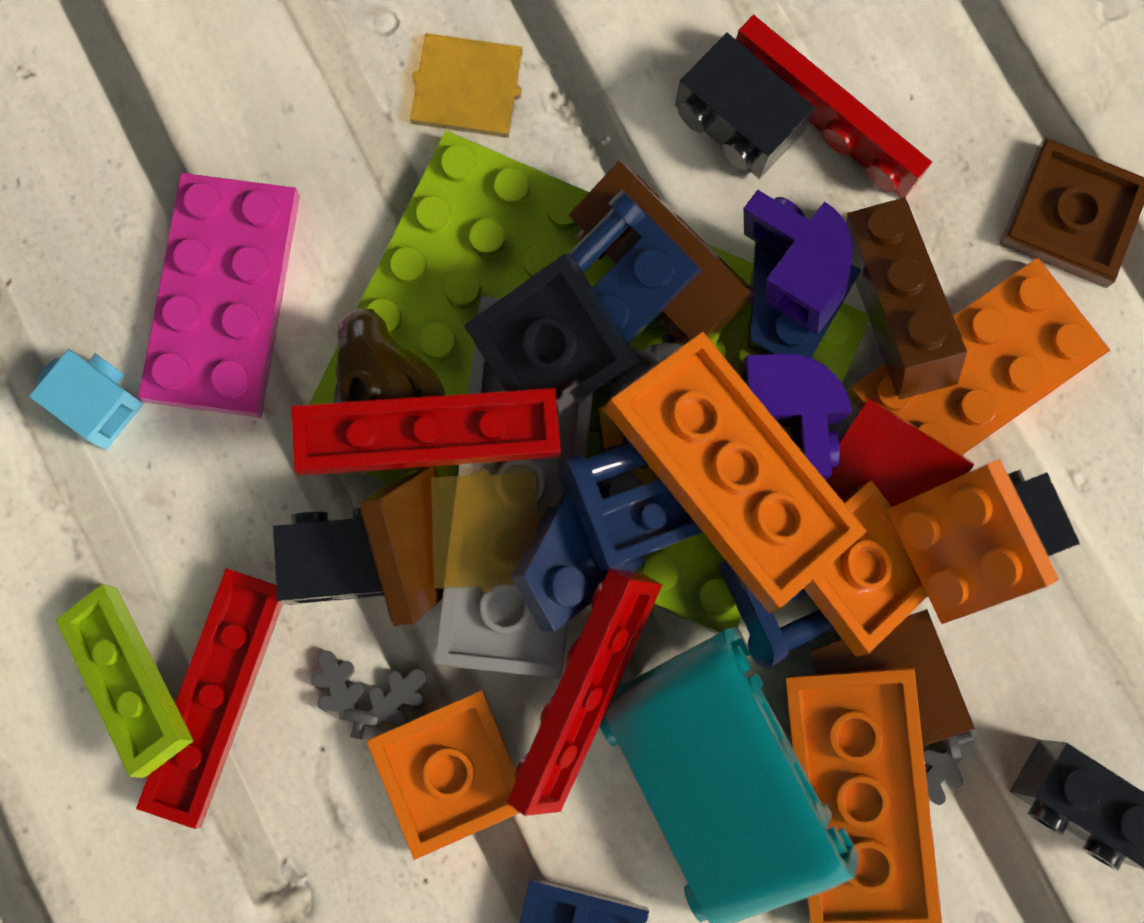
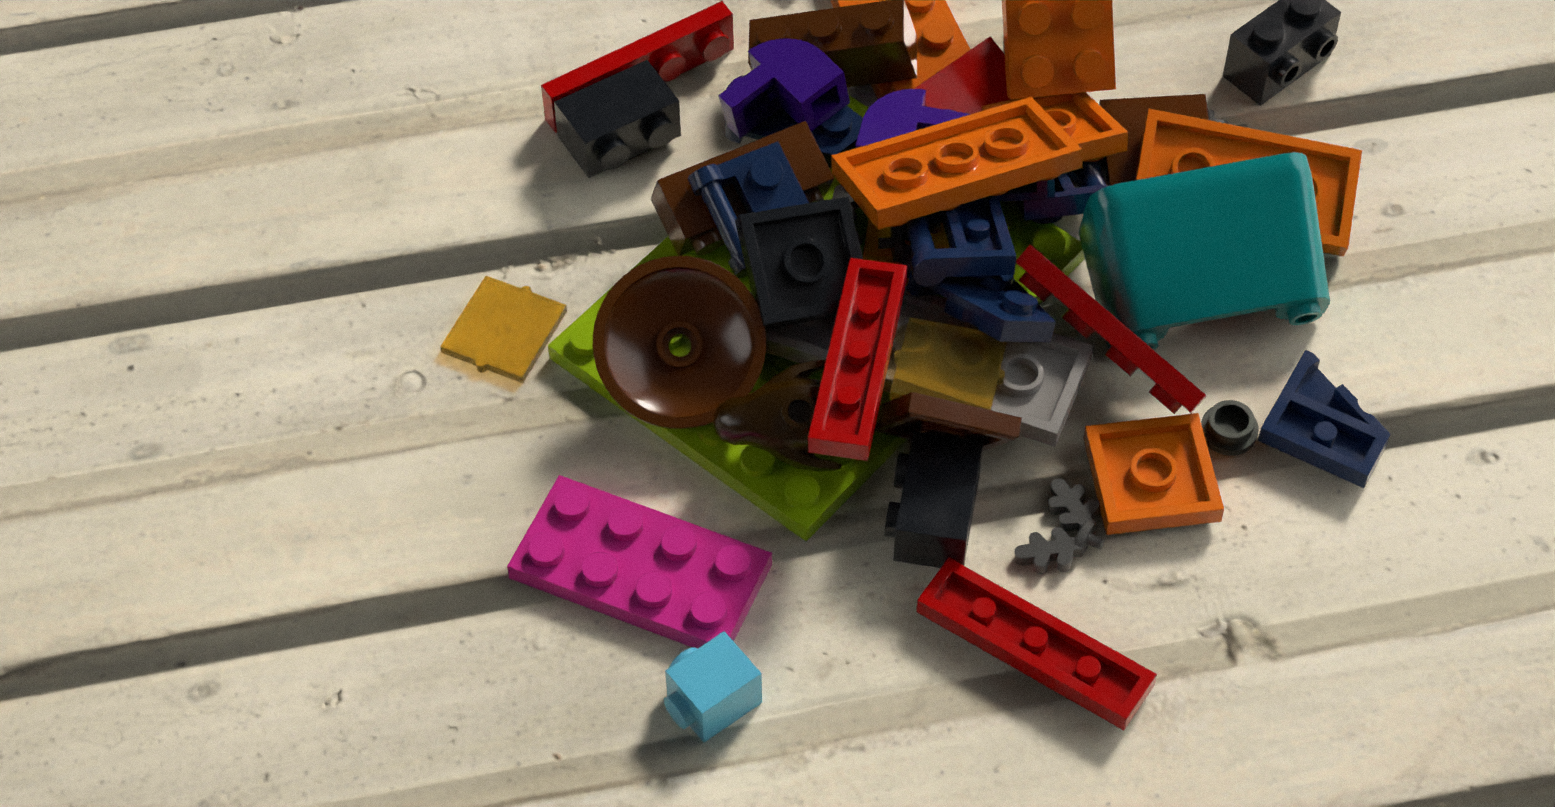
camera: 70 degrees left, 25 degrees down
(123, 681) = (1001, 700): lime plate -> none
(409, 242) = (668, 301): none -> reddish brown dish
(533, 844) = (1230, 428): none -> pearl dark grey plate

